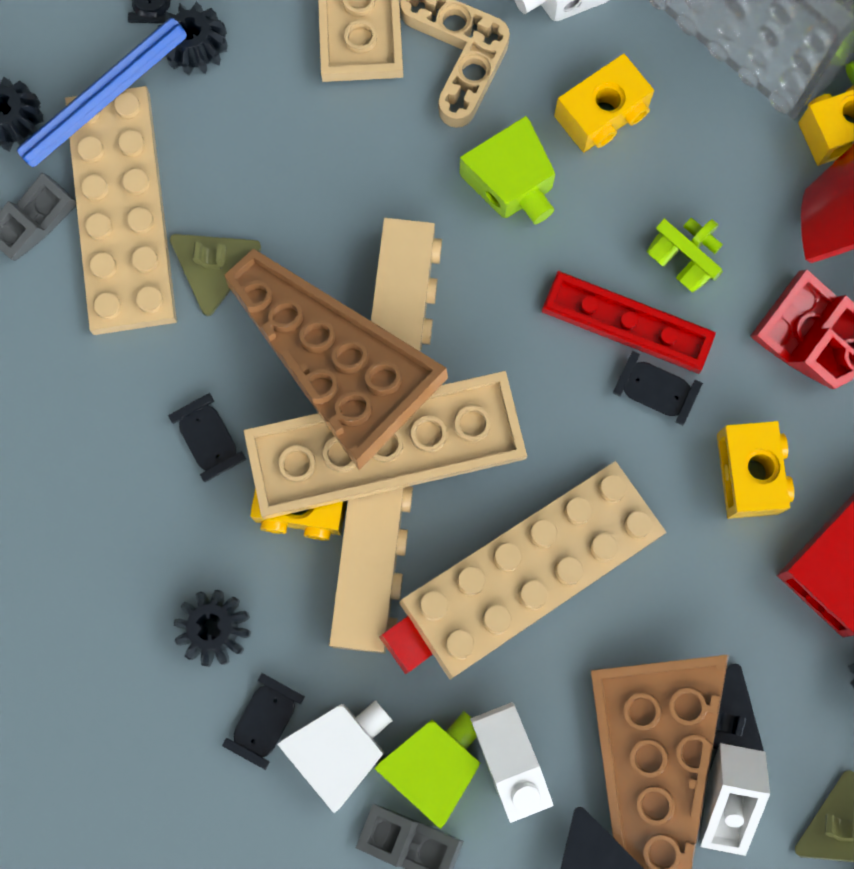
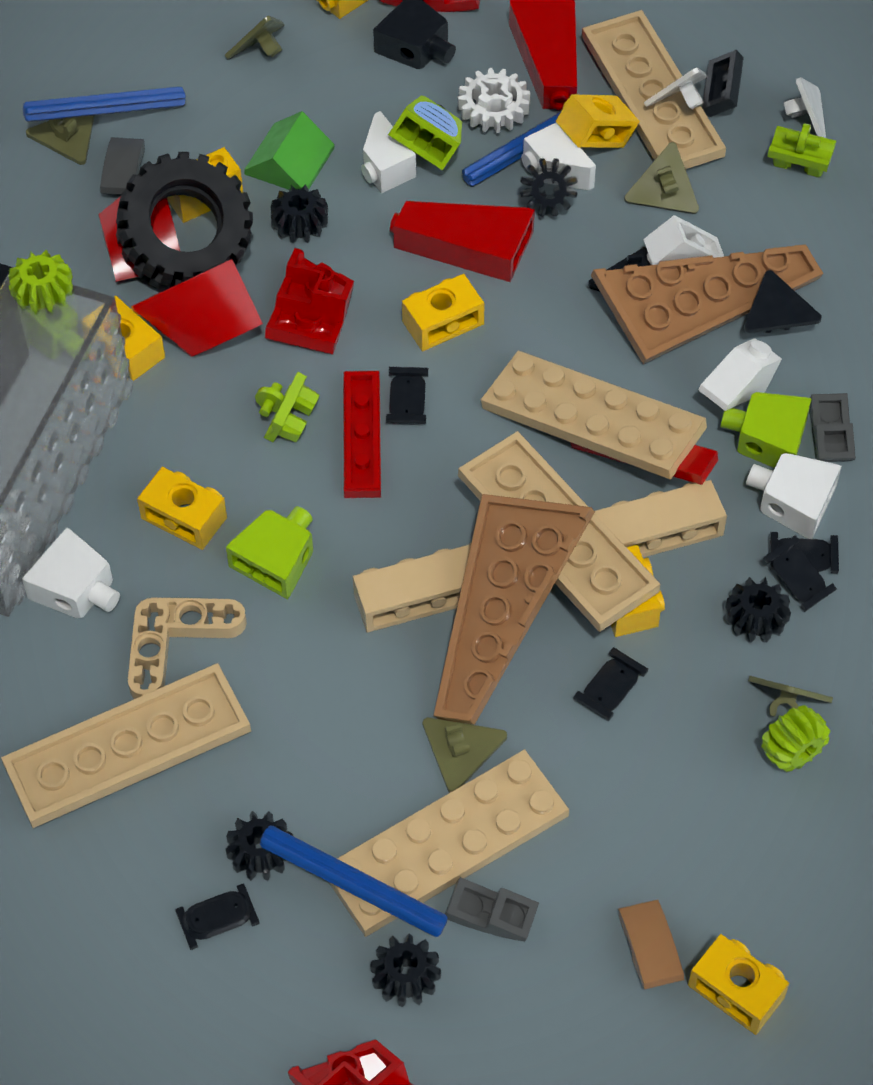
camera: 115 degrees left, 20 degrees down
(38, 582) = (795, 738): none -> lime gear
(100, 608) = (788, 694): none -> olive piece
(235, 698) = (799, 574): none -> black piece

